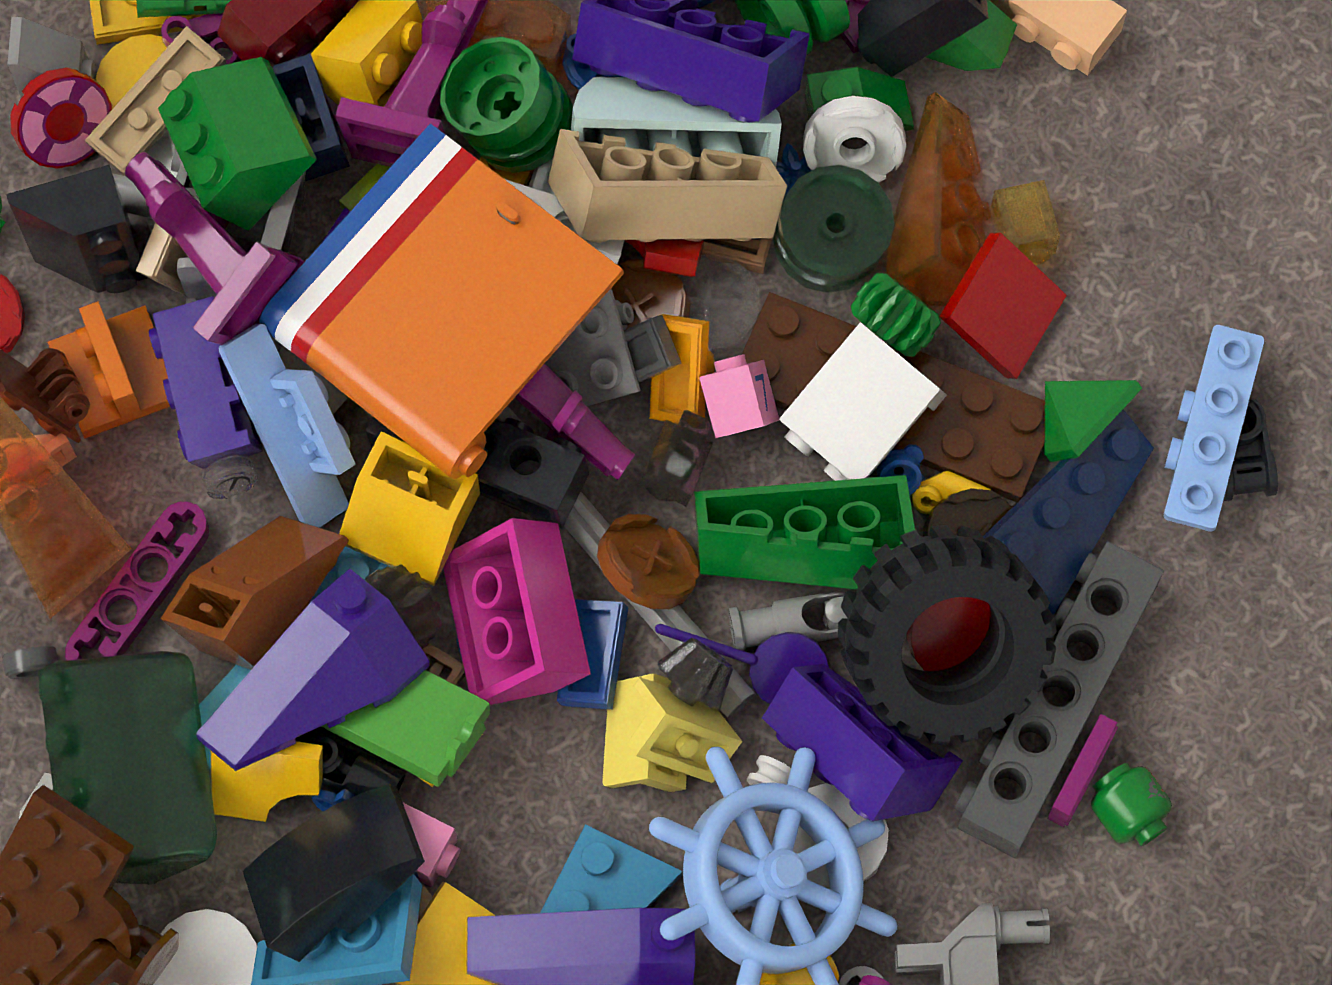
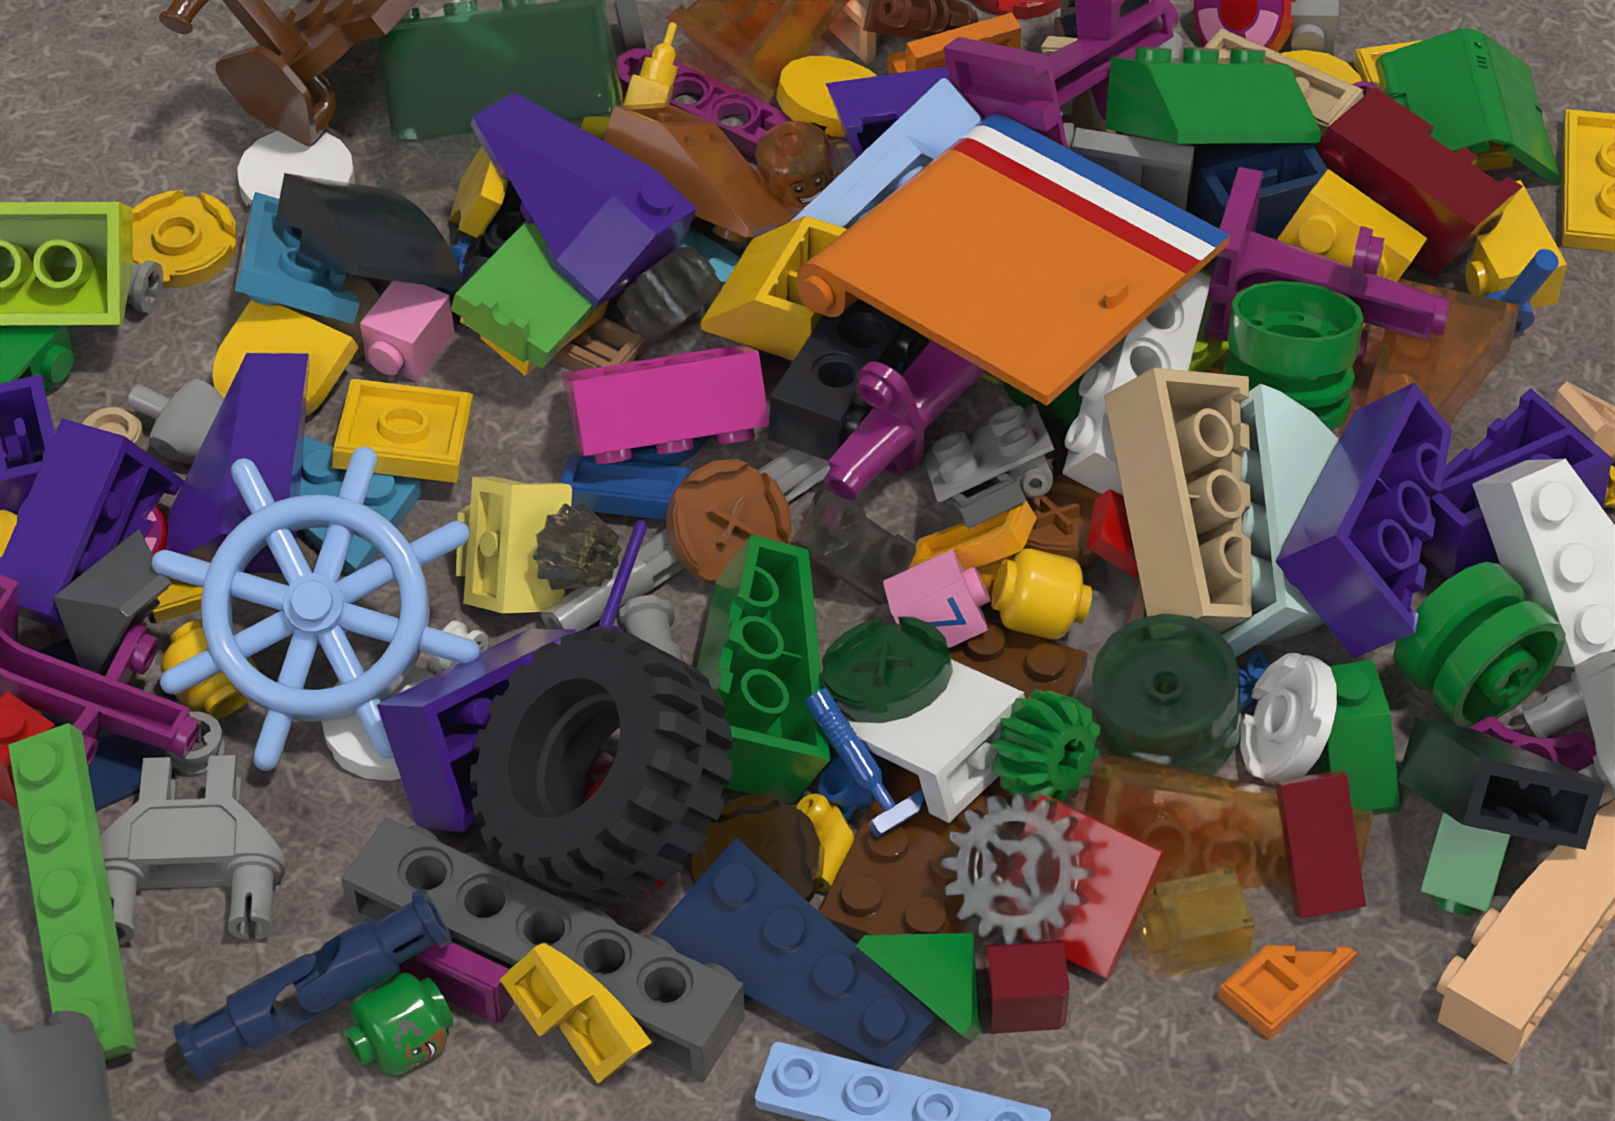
camera: 90 degrees right, 20 degrees down
(137, 478) = (804, 91): none -> yellow tile
(137, 631) = (649, 87): none -> yellow piece
(232, 507) = (794, 162): none -> clear orange head
(534, 839) = (408, 427): none -> yellow tile
(735, 315) = (1040, 594): none -> yellow head
(820, 430) = (887, 669): none -> dark green tile
(908, 451) = (860, 763): none -> blue piece
(963, 131) = (1320, 844): none -> dark red tile
(1008, 338) = (995, 885): none -> clear smoke gear
(1068, 177) = (1282, 983): none -> orange tile
(1081, 346) = (1026, 986): none -> dark red piece
(1131, 888) = (336, 972): none -> dark blue piece
(1133, 660) = (562, 994): none -> yellow slope

